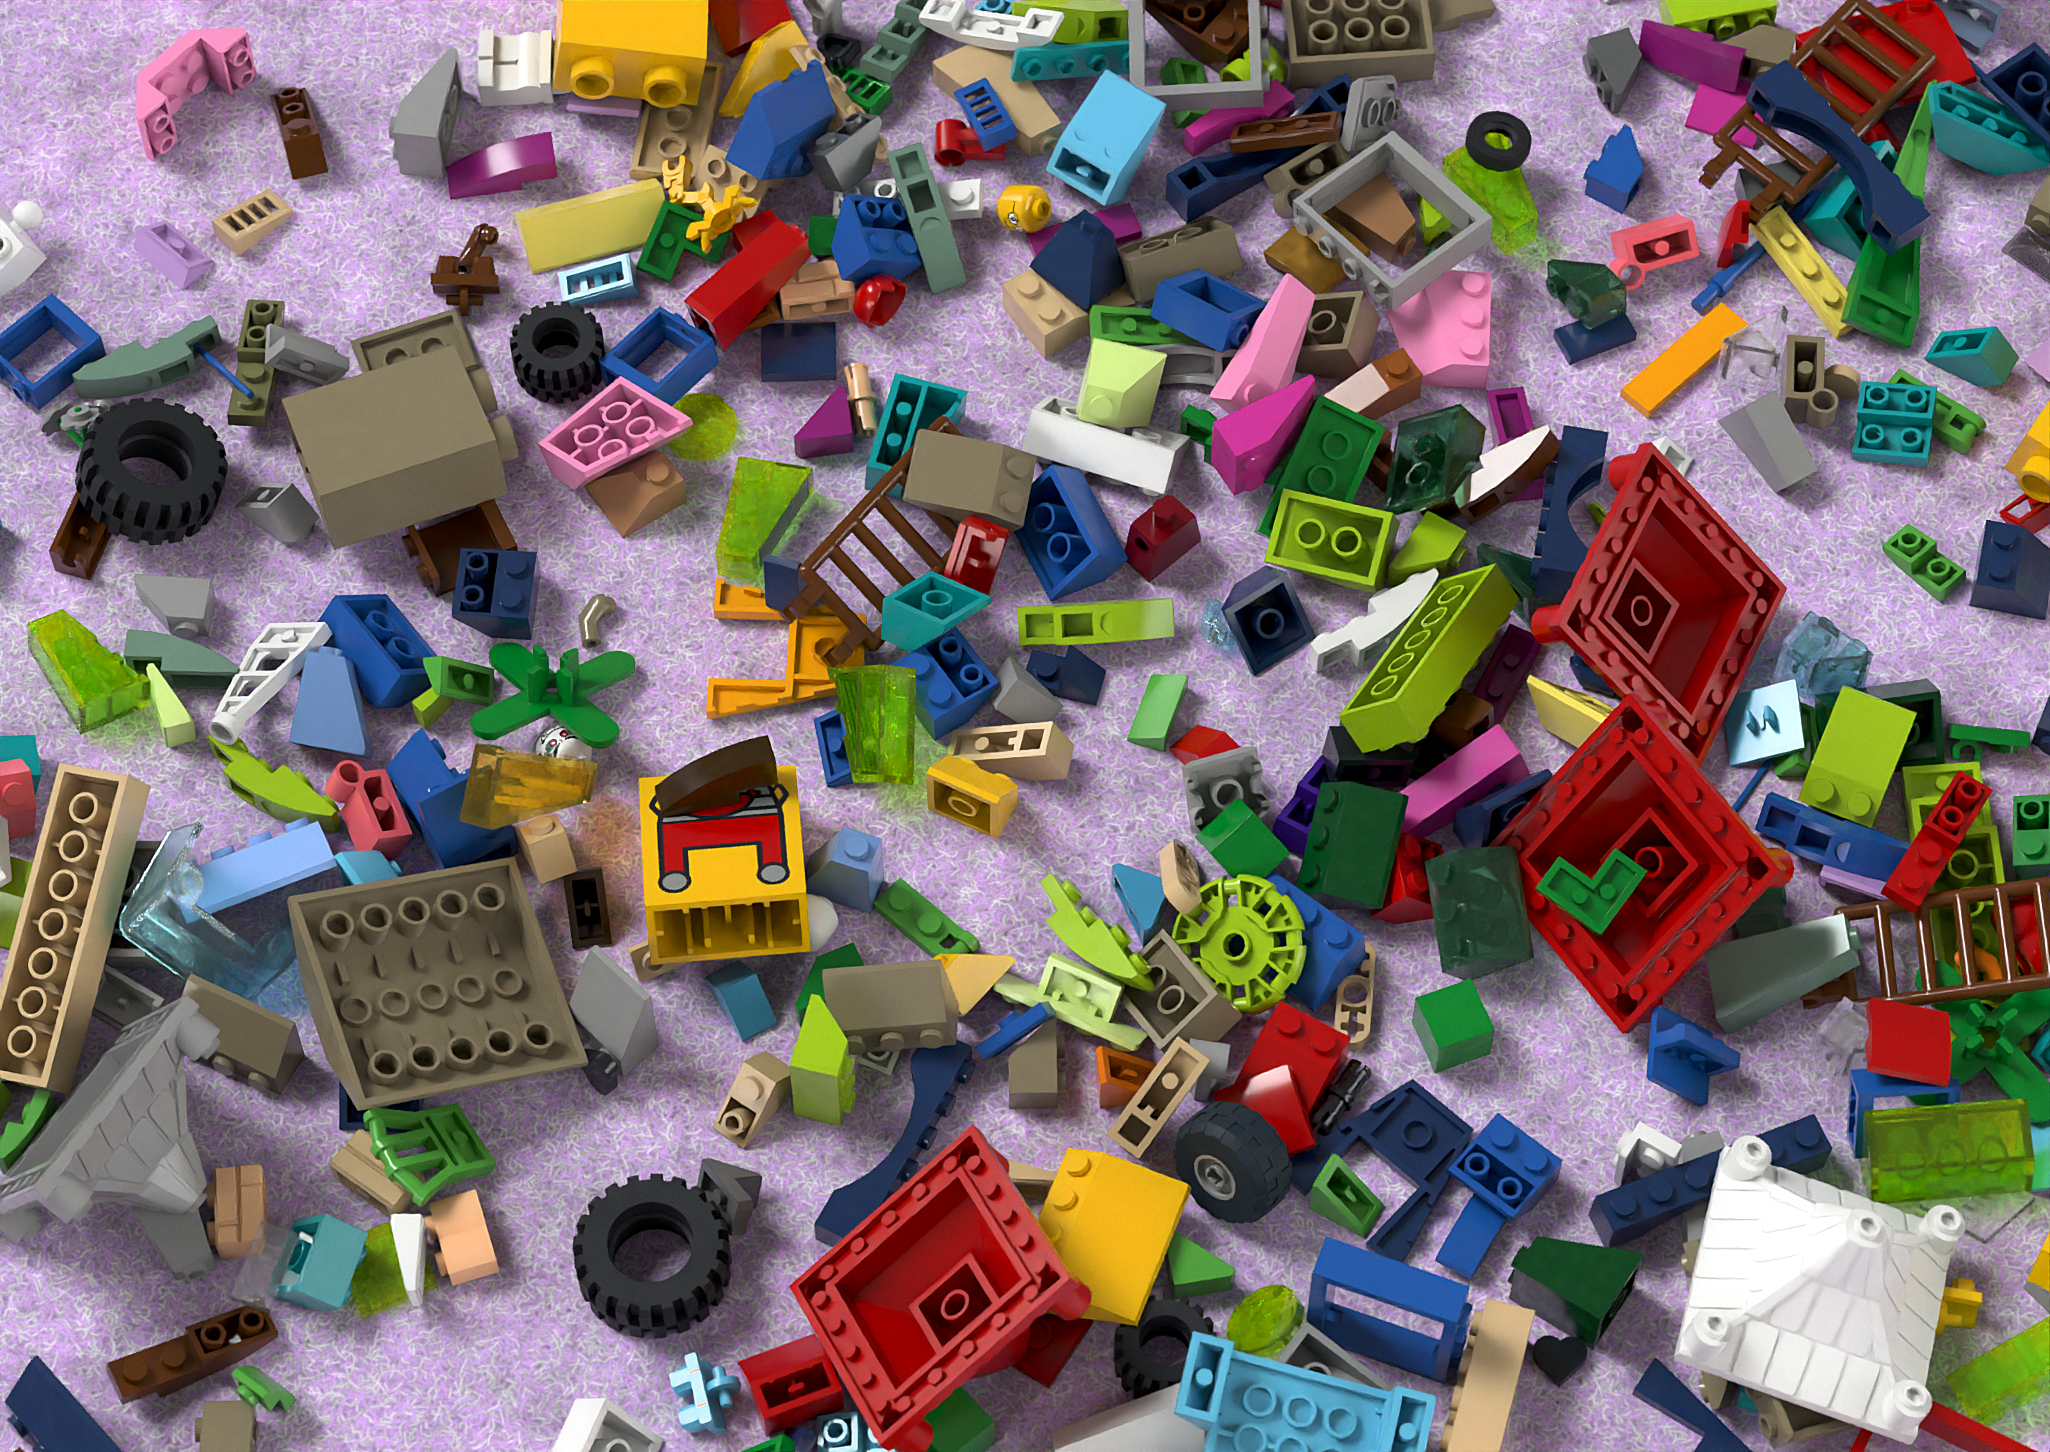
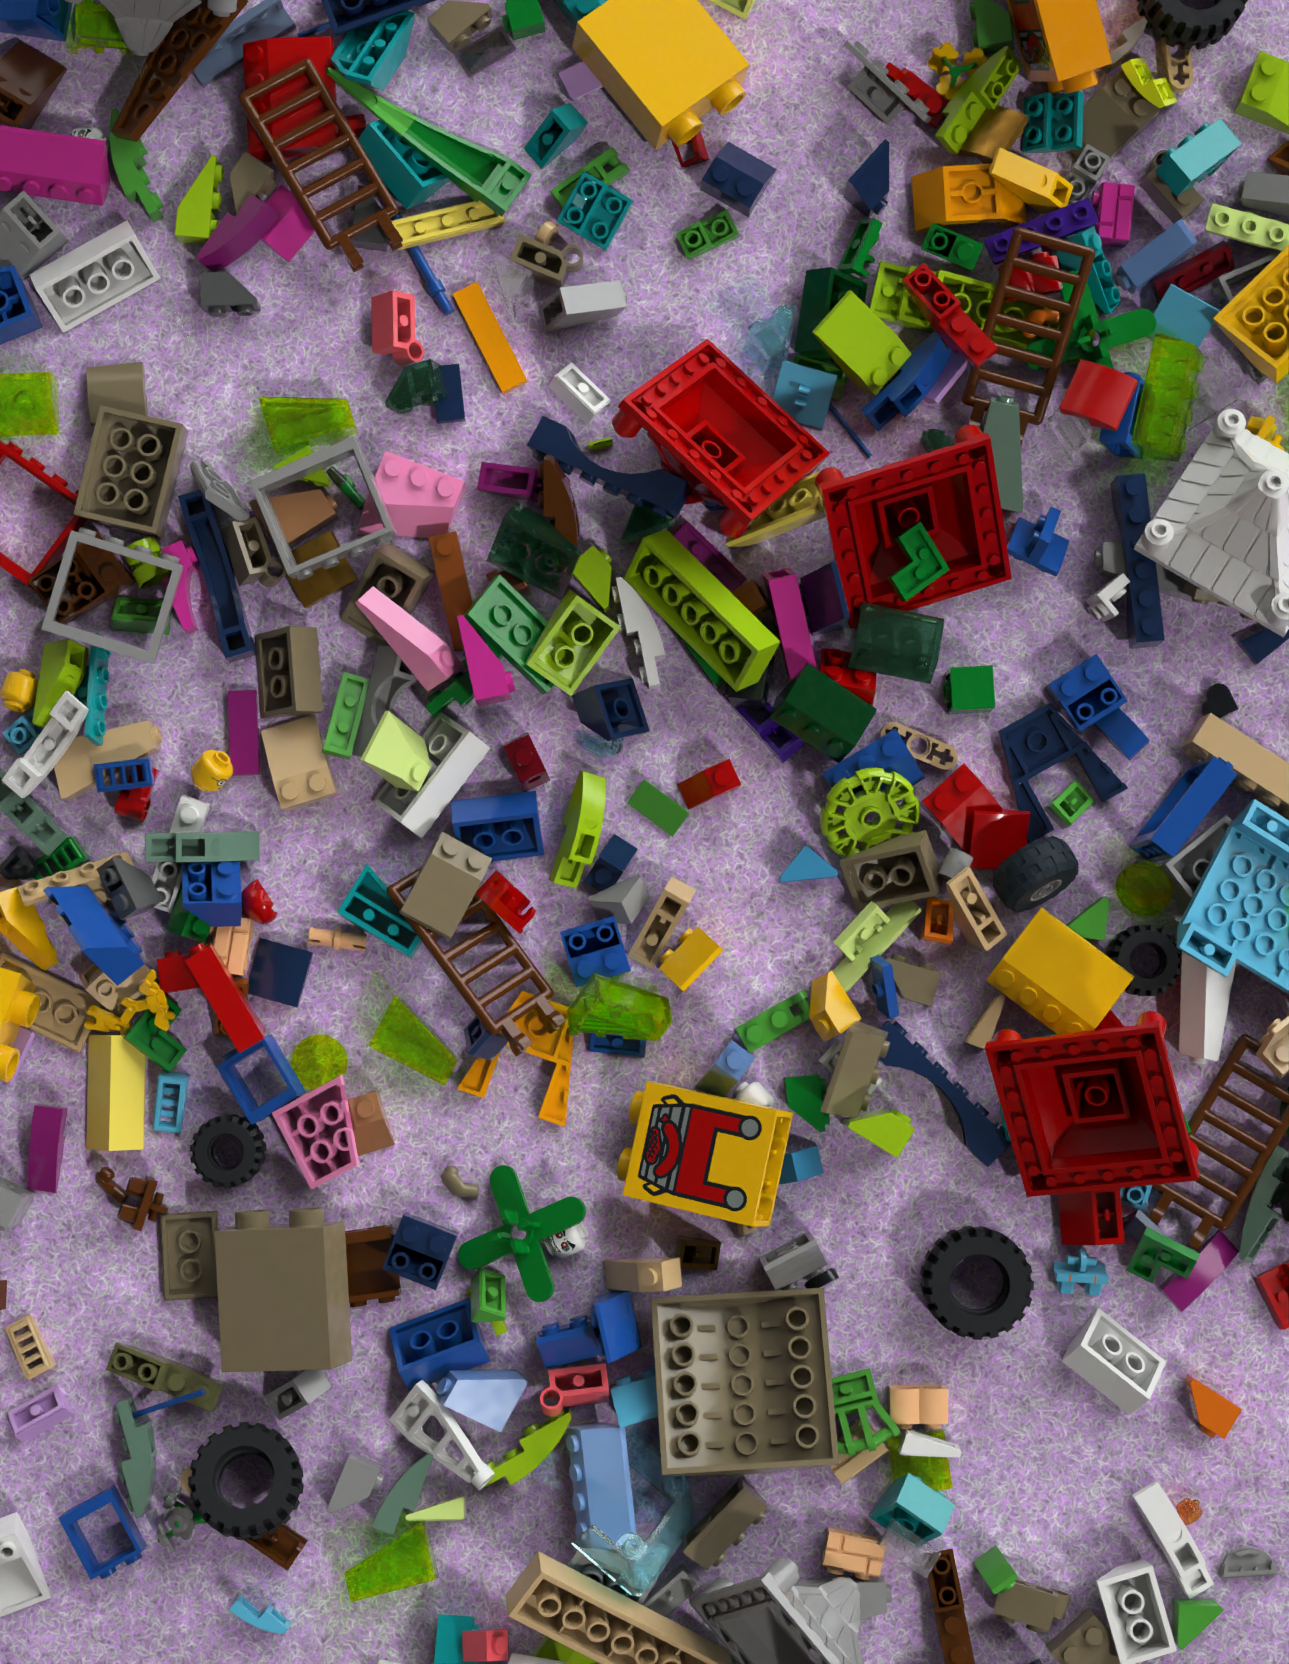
camera: 75 degrees left, 25 degrees up
(303, 356) = (170, 1341): light grey panel -> none
(522, 784) = (610, 1280): clear yellow slope -> none
(718, 778) = (652, 1143): dark brown slope -> none
(733, 1191) = (942, 1218): dark grey slope -> none
(753, 1098) = (874, 1178): tan slope -> none
(827, 430) = (356, 970): magenta slope -> none
(927, 610) = (544, 945): teal slope -> none
(1082, 261) = (280, 745): dark blue slope -> none
(1093, 937) = (843, 909): lime slope -> none
(1107, 139) = (179, 692): medium azure slope -> none
(1180, 876) = (805, 837): tan beam -> none
(1207, 309) = (366, 679): blue window -> none
(1219, 780) = (753, 785): light grey slope -> none
(1242, 842) = (796, 787): green head -> none
(1286, 132) = (214, 557): reddish brown tile -> none
(1339, 1097) = (992, 782): black pin -> none
(1495, 158) = (268, 392): black tyre -> none
(1574, 1284) = (1185, 676): dark green slope -> none
(1617, 173) = (319, 325): blue slope -> none
(1733, 230) = (404, 265): red slope -> none
(1791, 104) = (435, 147): dark blue arch -> none

